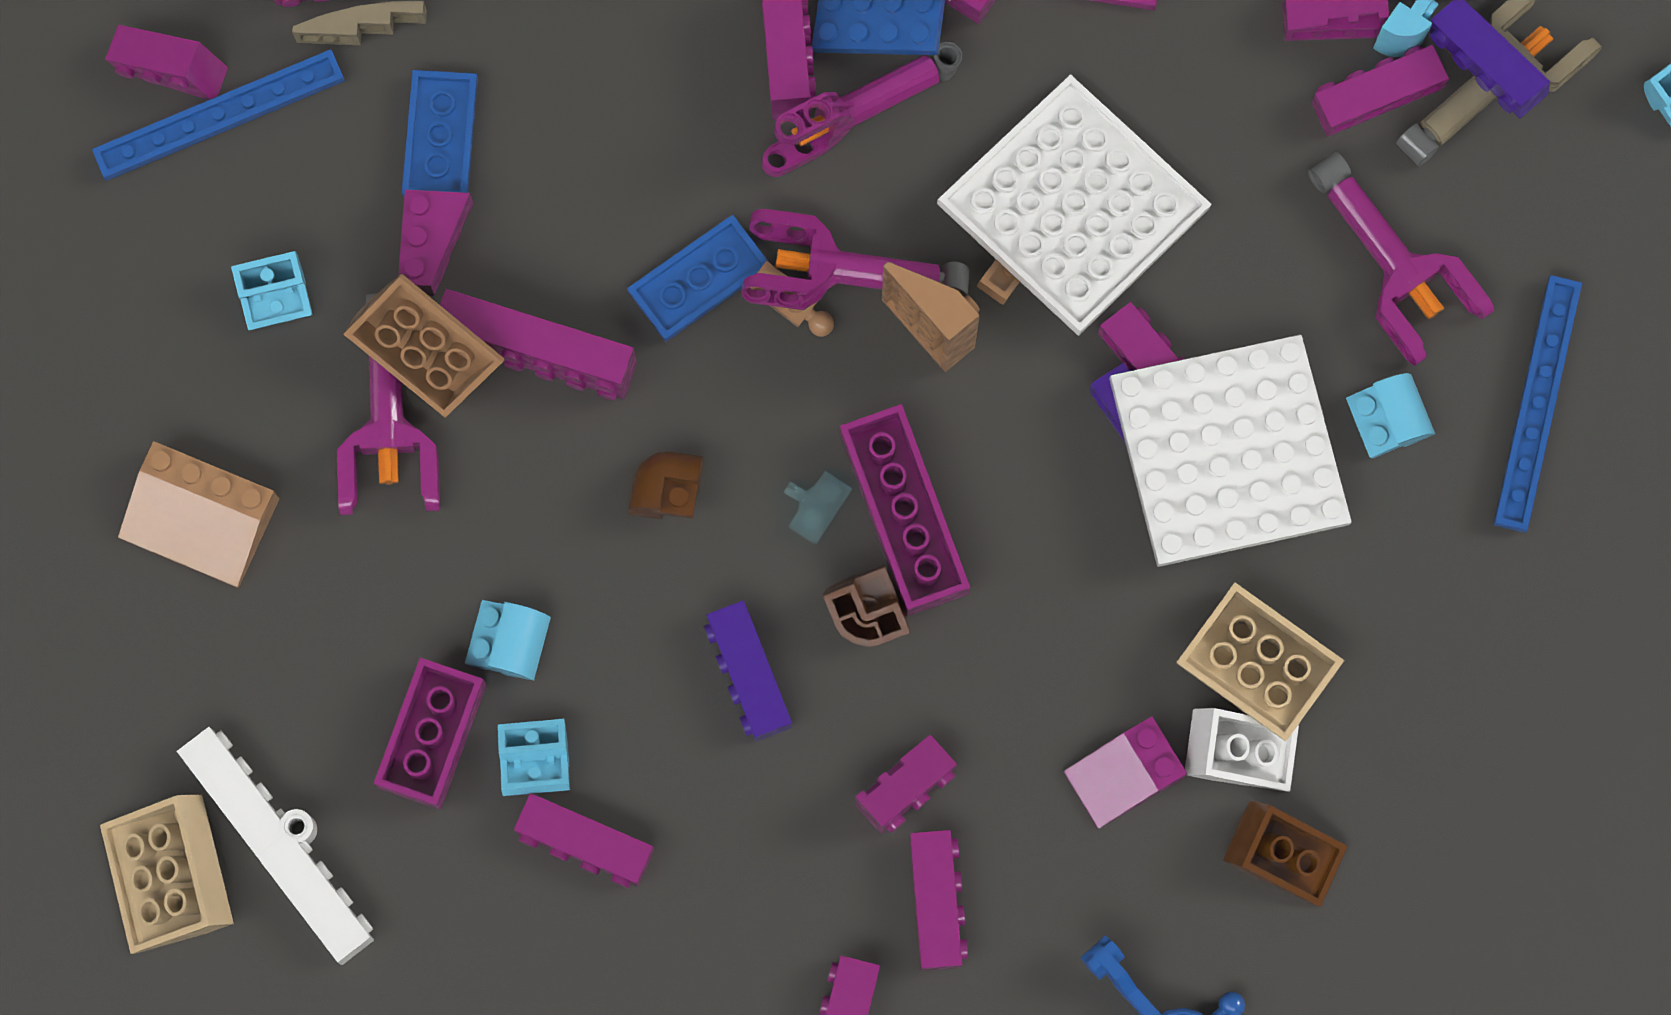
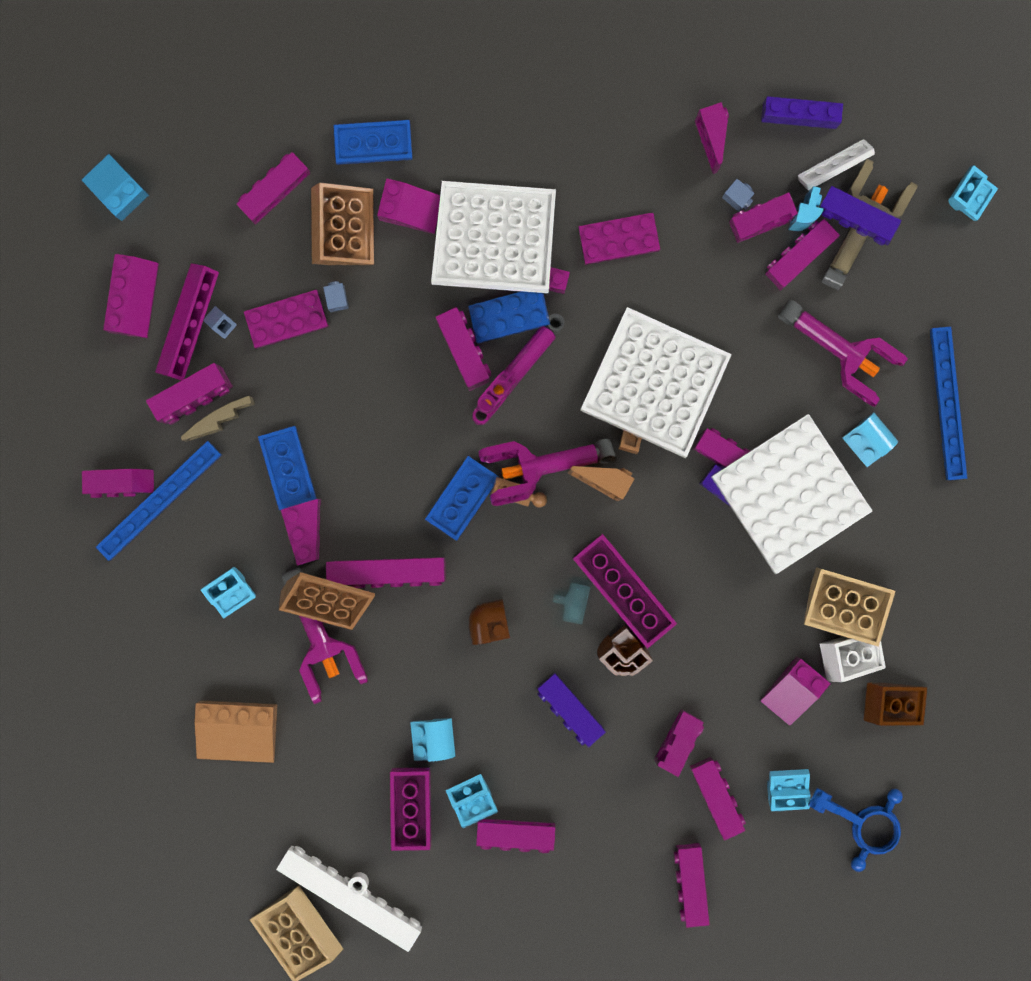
camera: 25 degrees left, 10 degrees up
(1058, 926) = (788, 790): none -> medium azure brick

